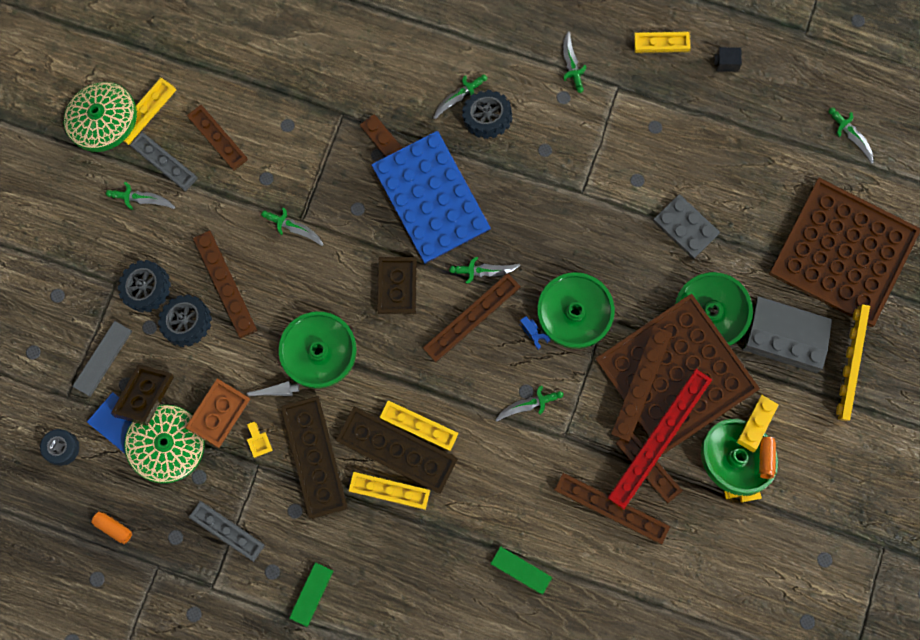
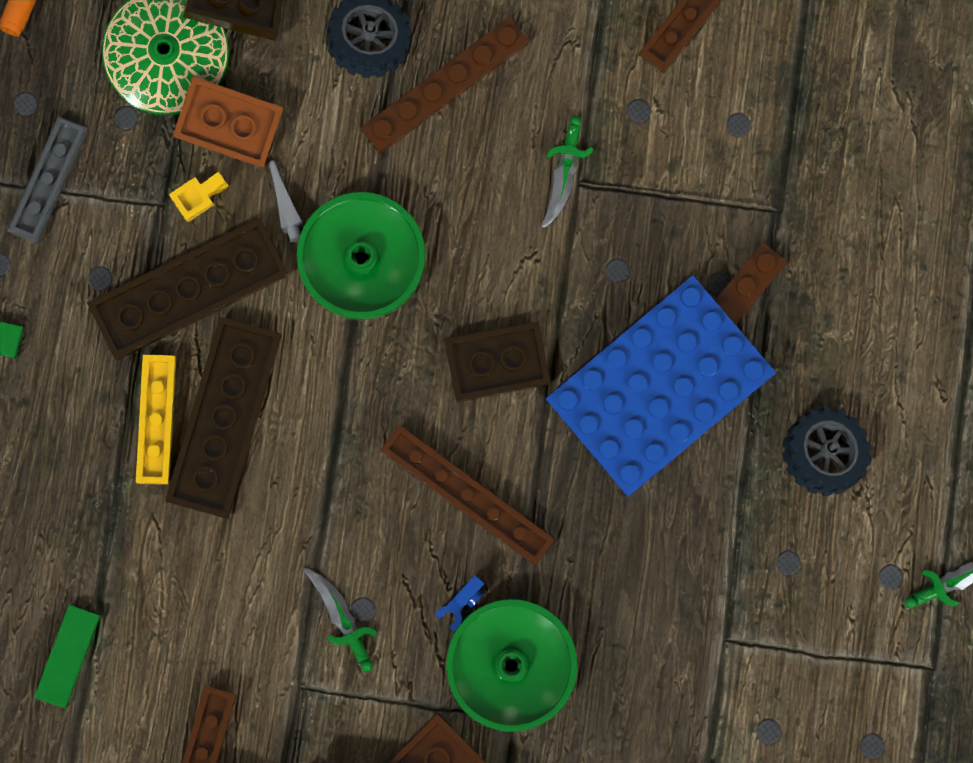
camera: 70 degrees right, 5 degrees up
(419, 425) = (270, 445): yellow plate -> none
(460, 93) = (857, 399): piece -> none
(485, 269) = (554, 498): piece -> none

